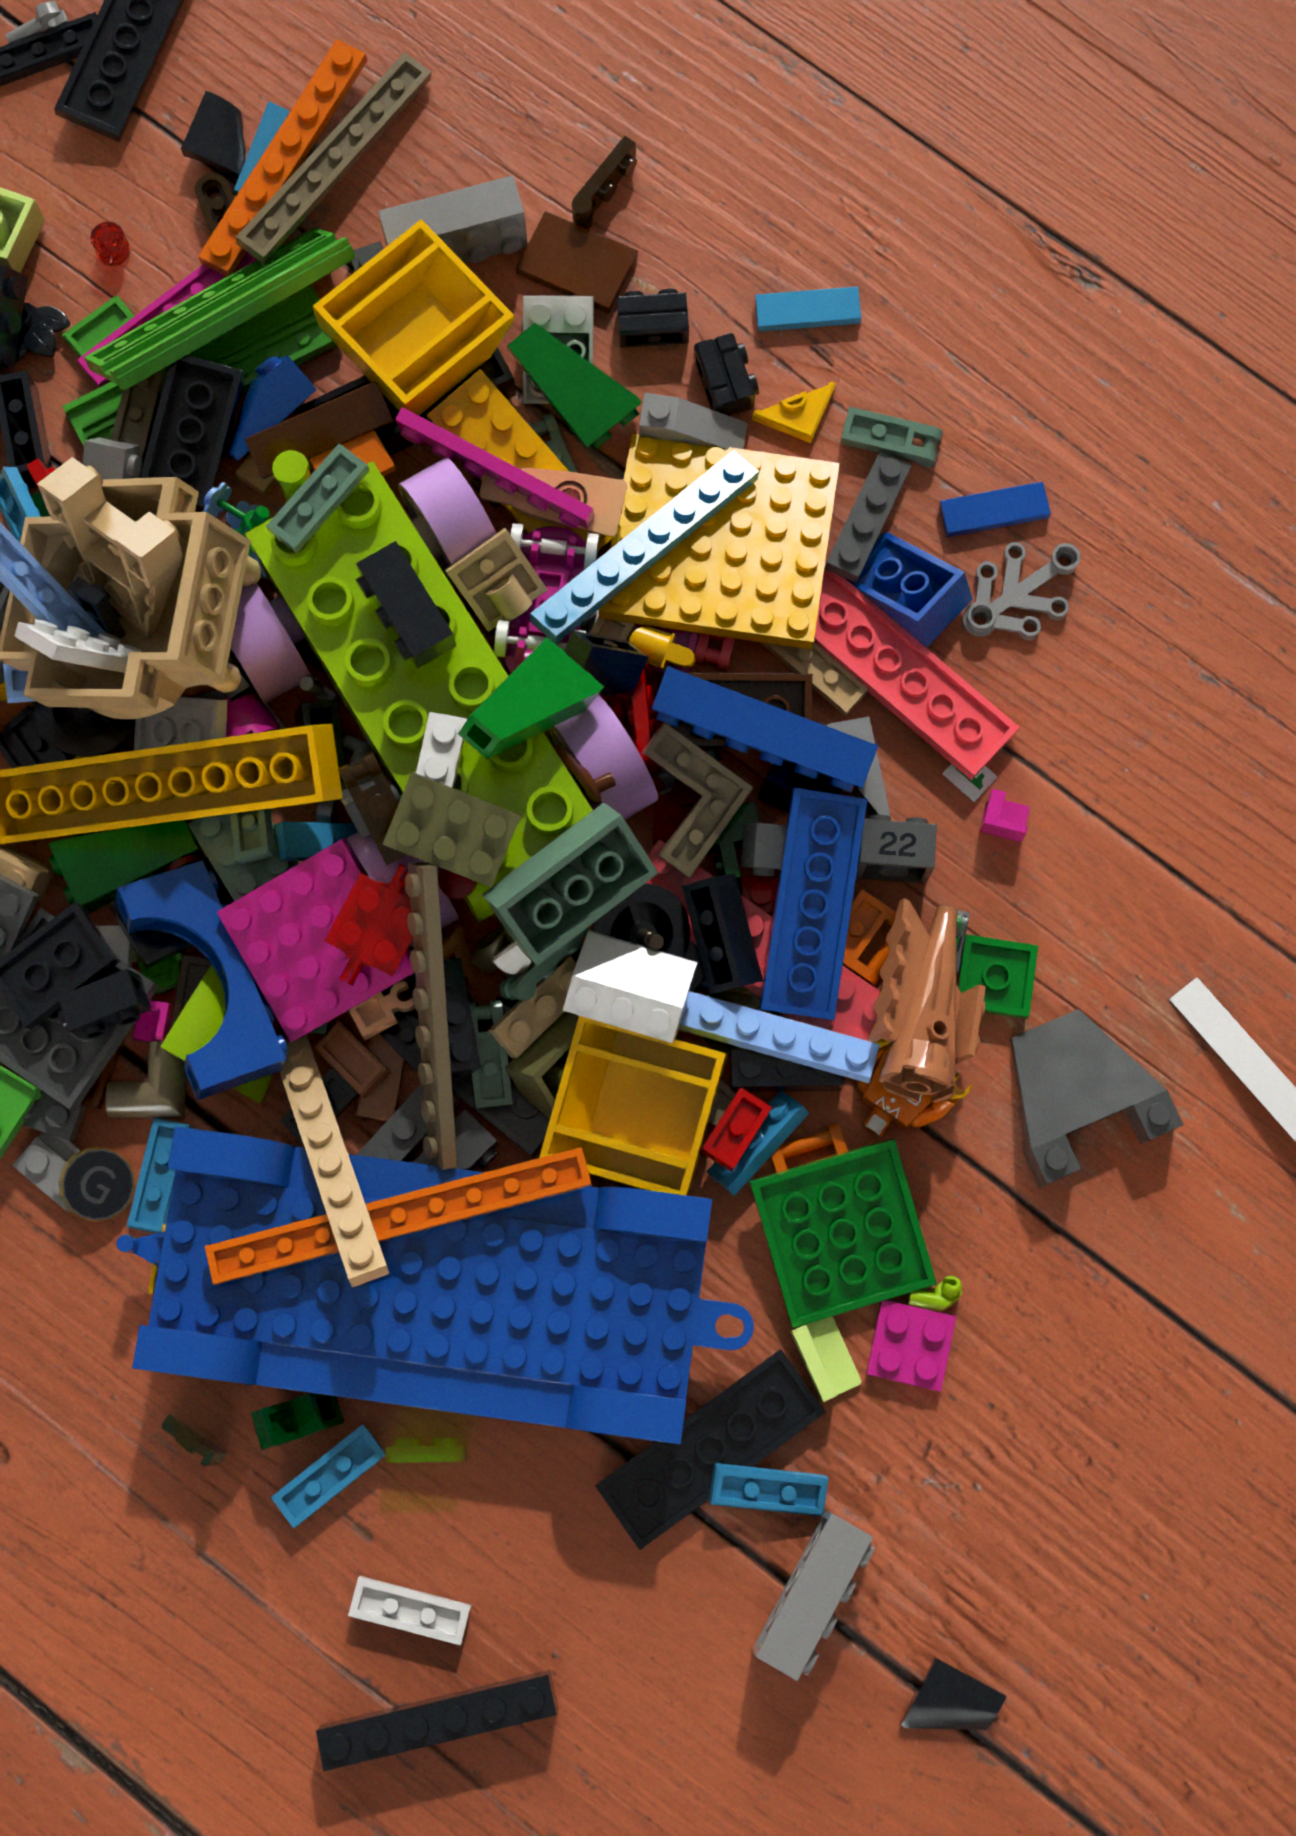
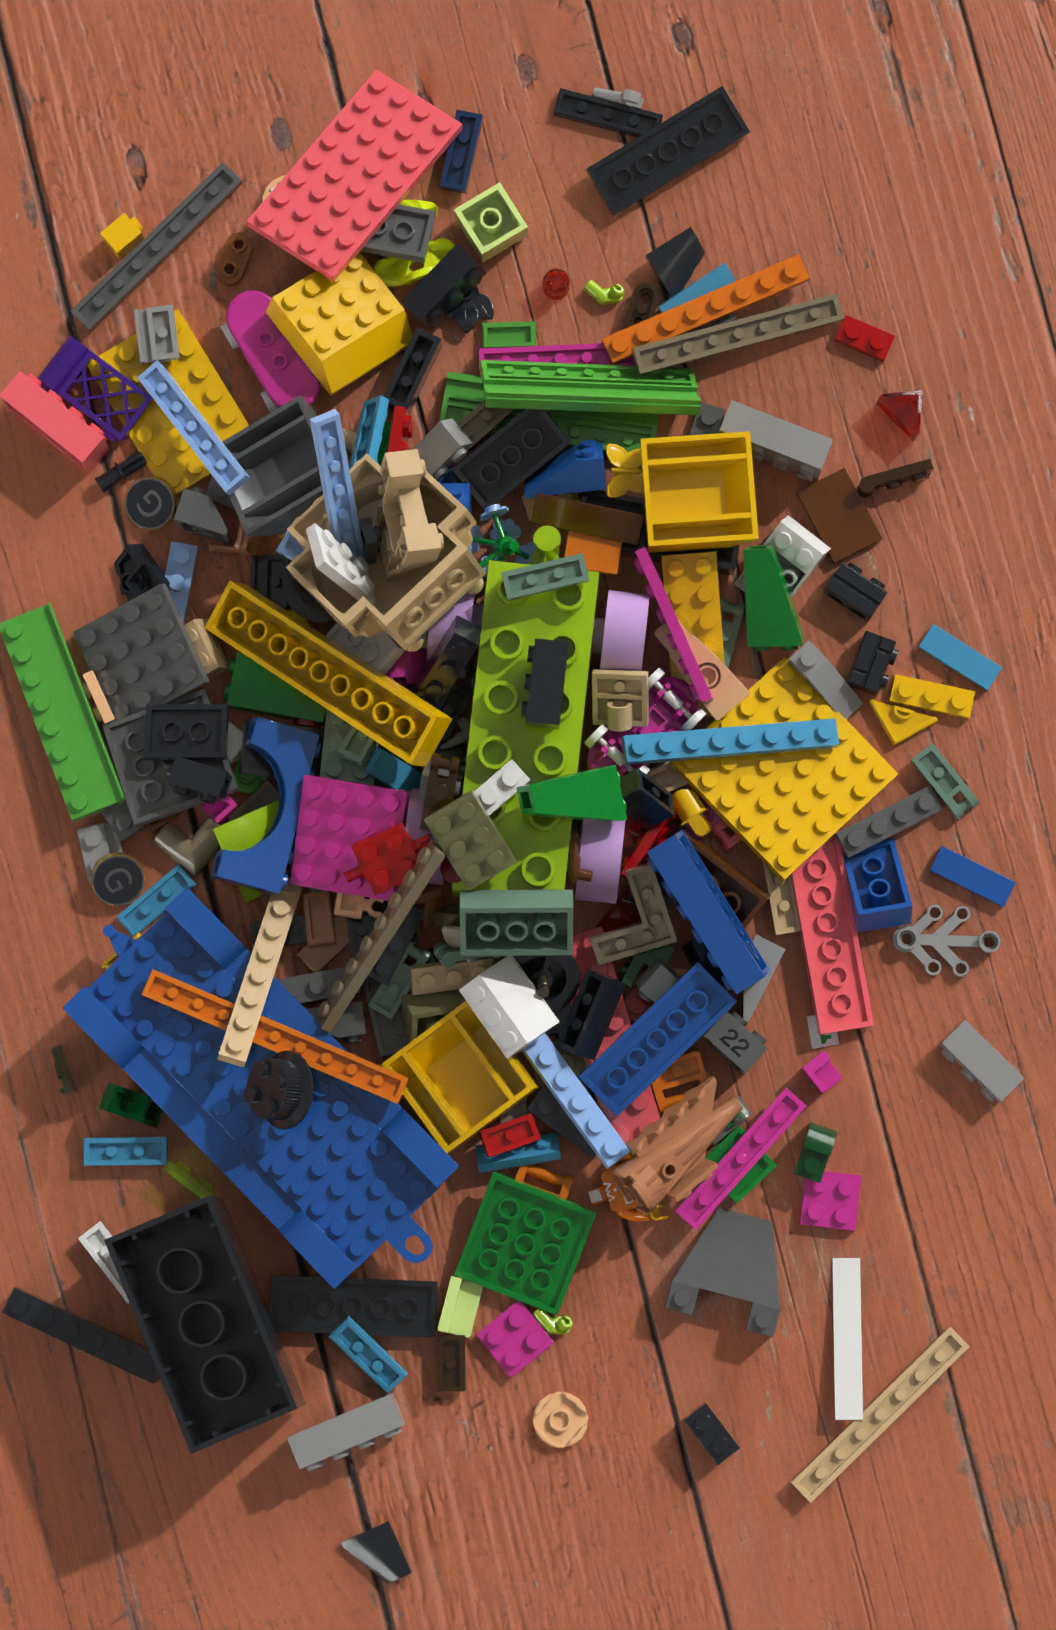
camera: 40 degrees right, 5 degrees up
(171, 221) = (604, 296): none -> lime arm
(282, 687) = (446, 664): none -> black brick
(325, 360) = (627, 469): none -> yellow piece
(450, 1267) = (280, 1089): none -> black piece
(466, 79) = (864, 338): none -> red plate
(561, 111) = (904, 410): none -> clear red slope
(566, 1603) = (205, 1322): none -> black brick
(810, 366) = (932, 696): none -> yellow plate
(865, 1426) = (451, 1363): none -> dark brown plate
(998, 964) = (741, 1158): none -> dark pink plate
(1028, 1395) = (560, 1419): none -> light nougat tile
(1065, 893) = (815, 1152): none -> dark green brick
(1119, 940) = (832, 1201): none -> dark pink plate
(1156, 682) = (980, 1062): none -> light grey brick
(1200, 1281) = (711, 1433): none -> black brick

